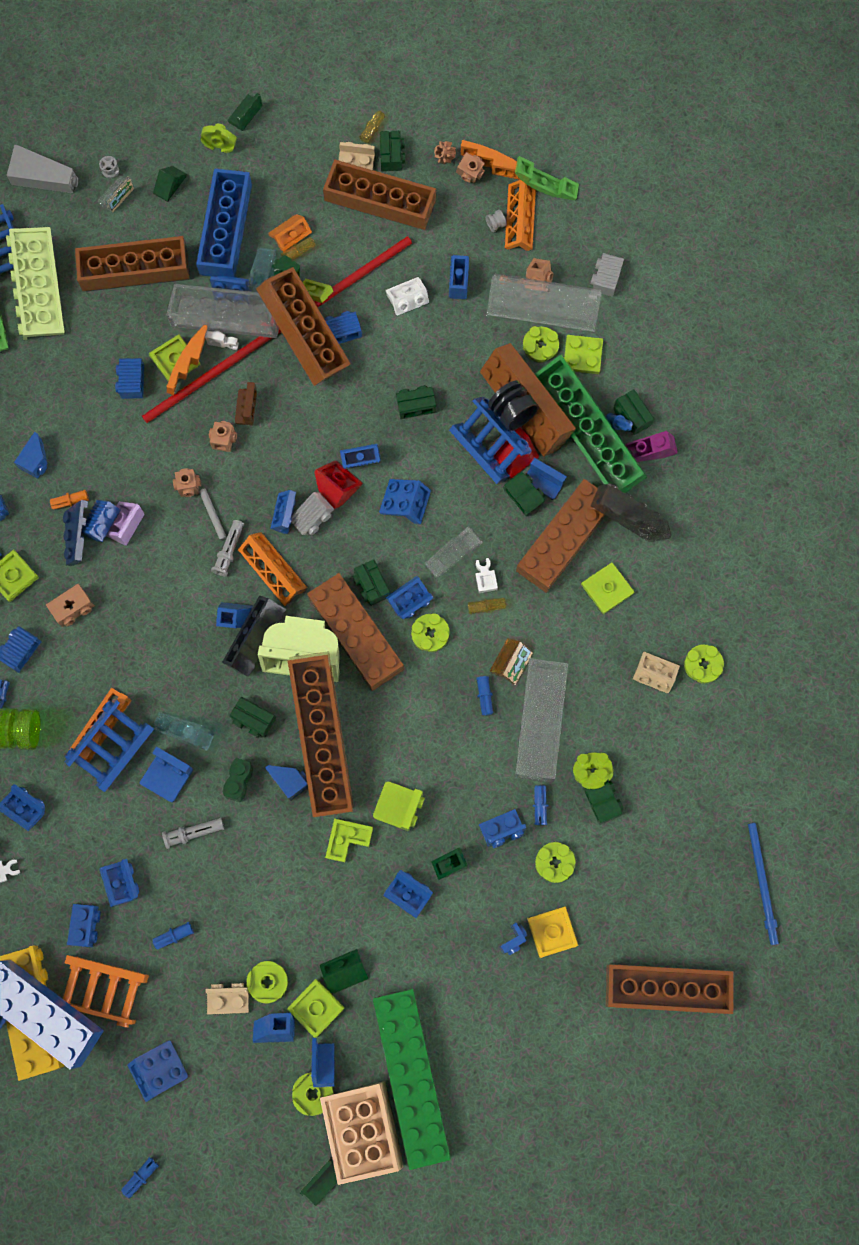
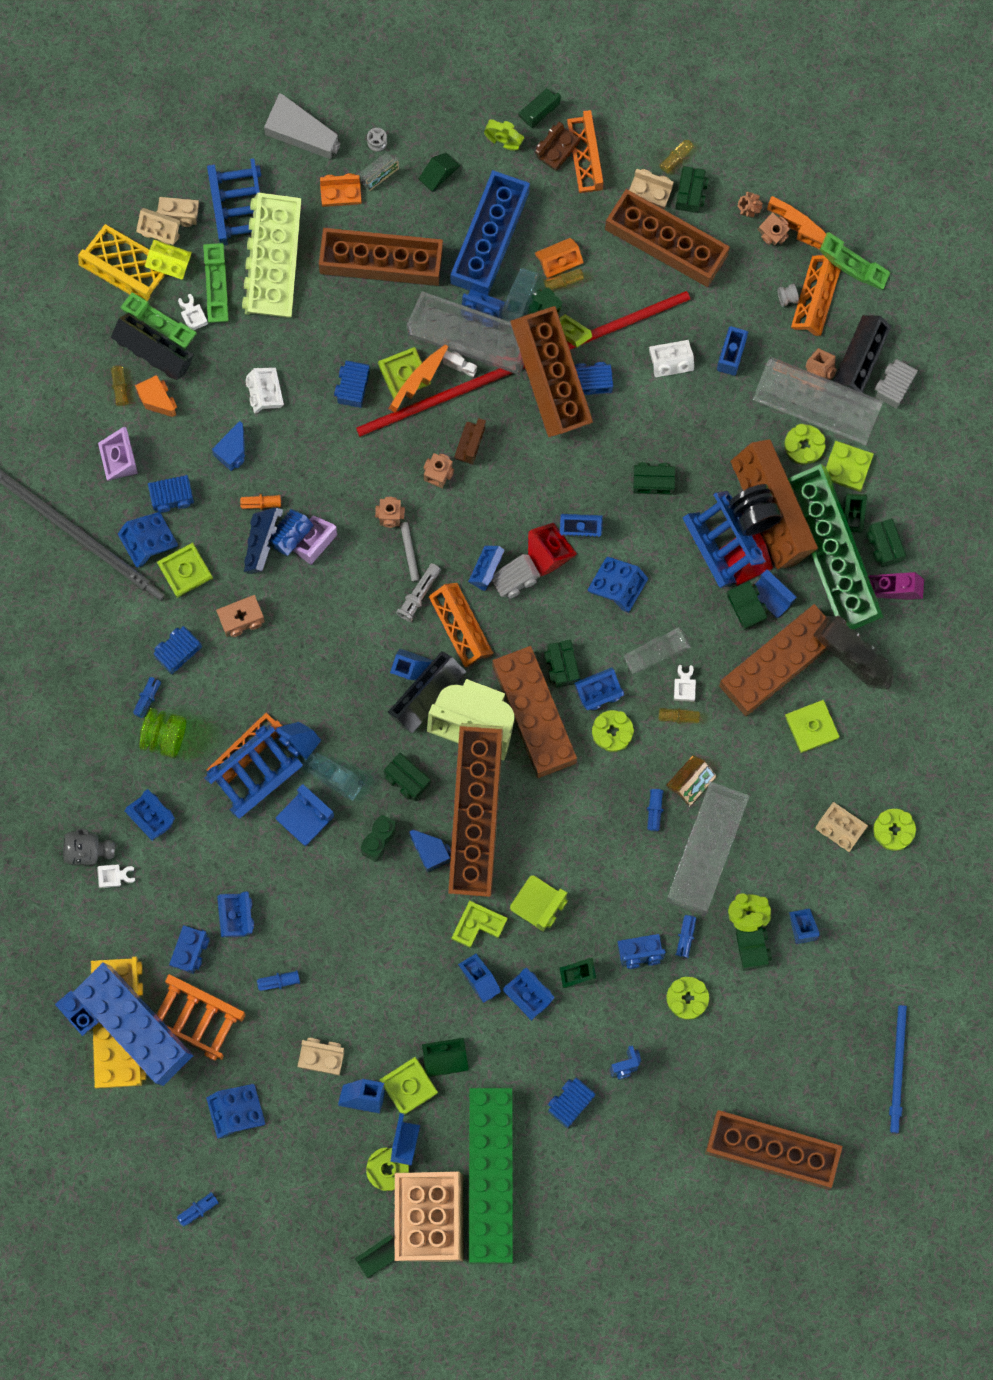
camera: 10 degrees right, 0 degrees up
(52, 400) = (264, 389): none -> white bracket
(86, 216) = (340, 190): none -> orange bracket
(145, 704) = (298, 738): none -> blue slope
(216, 824) = (347, 879): light grey pin -> none
(259, 990) = (371, 1059): lime plate -> none
(266, 139) = (556, 146): none -> reddish brown bracket
(298, 136) = (592, 150): none -> orange fence
(359, 889) = (479, 978): none -> blue slope
(470, 988) = (571, 1102): none -> blue brick
(552, 932) = (668, 1067): yellow tile -> none
(573, 253) = (863, 352): none -> black brick
(599, 390) = (854, 510): none -> dark green slope
(619, 422) = (867, 550): blue axle -> none
(645, 771) = (804, 926): none -> blue slope

